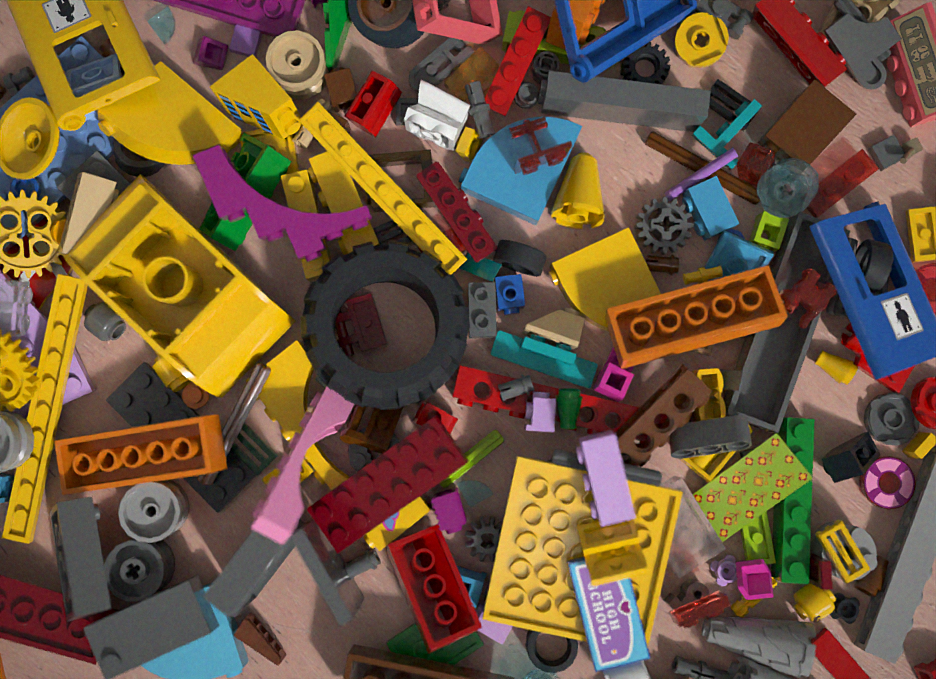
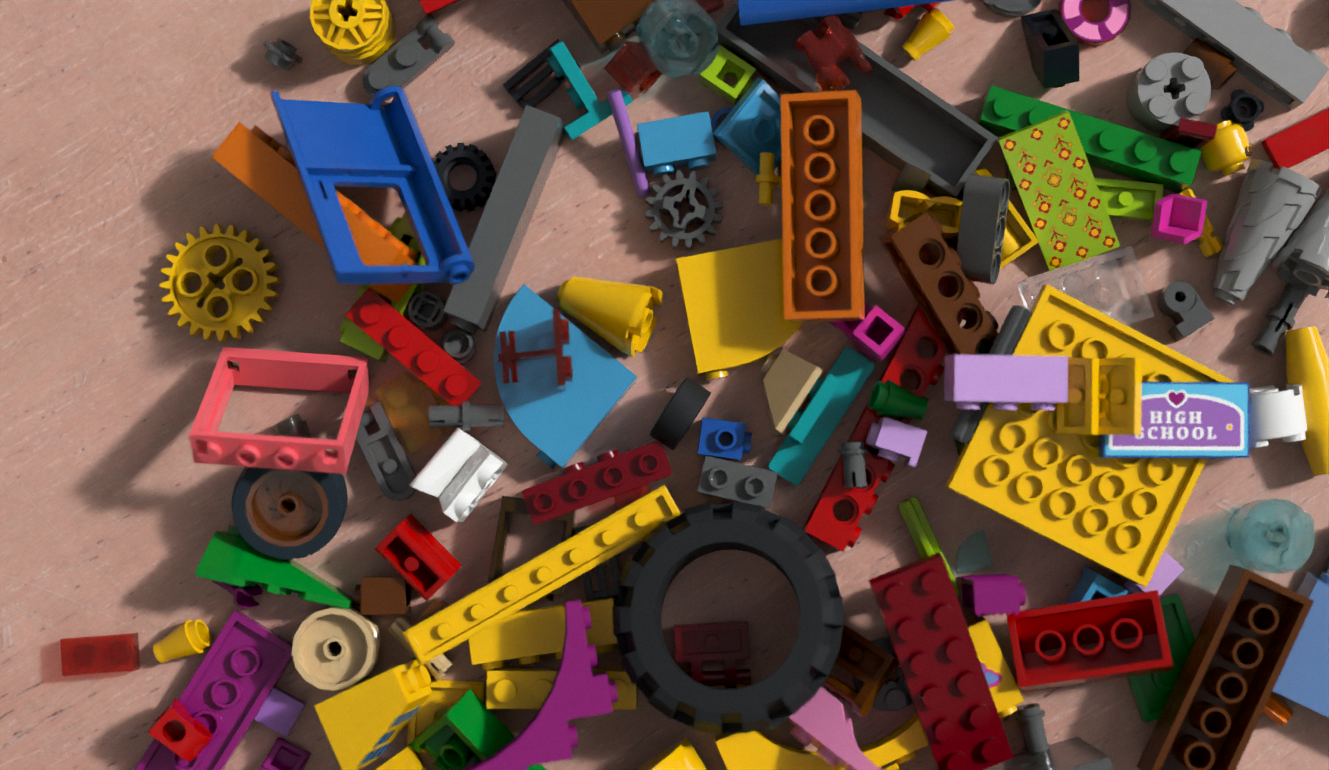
camera: 65 degrees left, 0 degrees up
(401, 108) = (432, 515): dark grey tile -> none
(428, 411) = (856, 589): red leg -> none
(468, 144) = (506, 442): yellow plate -> none
(477, 538) = (1039, 567): dark grey gear -> none
(485, 268) = (682, 463): teal sticker -> none
(547, 665) = (1226, 513): black tyre -> none
(663, 264) = (734, 224): reddish brown pin -> none
(695, 163) = (611, 142): reddish brown axle -> none
(707, 26) = (460, 77): yellow plate -> none
(710, 606) = (1199, 285): clear red plate -> none
(718, 568) = (1150, 258): lavender plate -> none
(830, 531) = (1141, 106): yellow tile -> none

